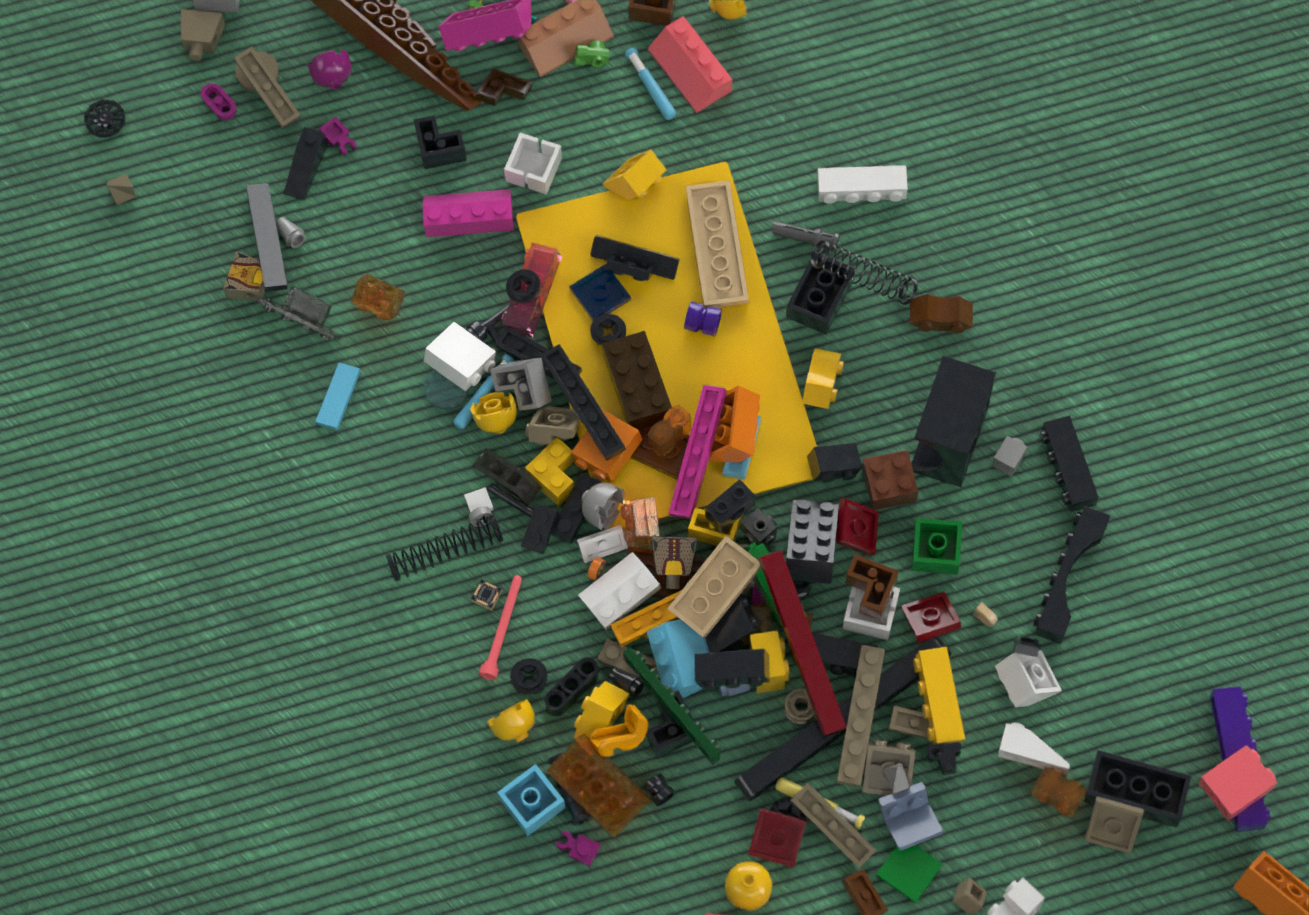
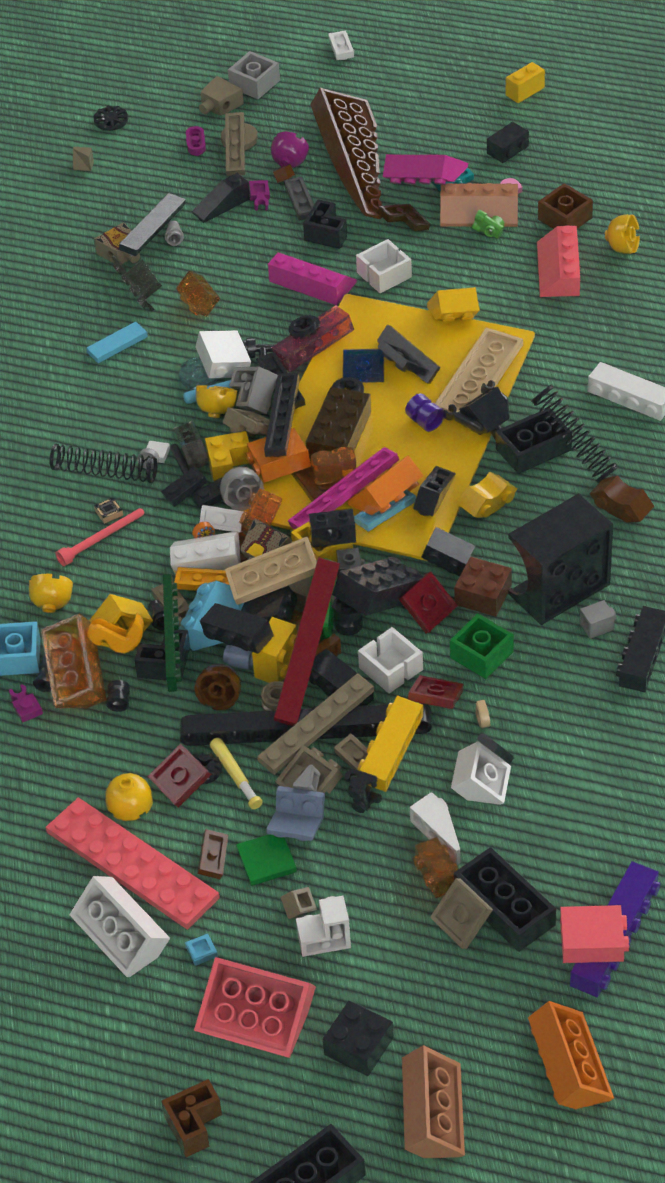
camera: 35 degrees right, 20 degrees down
(342, 97) = (283, 173): none -> reddish brown piece
(379, 118) = (299, 197): none -> dark grey tile
(528, 666) = (99, 571): black gear -> none
(575, 676) = (130, 588): black beam -> none
(655, 91) = (518, 268): medium azure piece -> none
(742, 727) = (218, 686): none -> reddish brown cylinder
(760, 288) = (484, 412): none -> black torso
(775, 402) = (433, 491): none -> black slope
(805, 235) = (537, 388): dark grey pin -> none
(833, 825) = (230, 790): dark tan plate -> none
(876, 581) = (398, 631): reddish brown brick -> none
(1056, 615) = (616, 703): black arch -> none

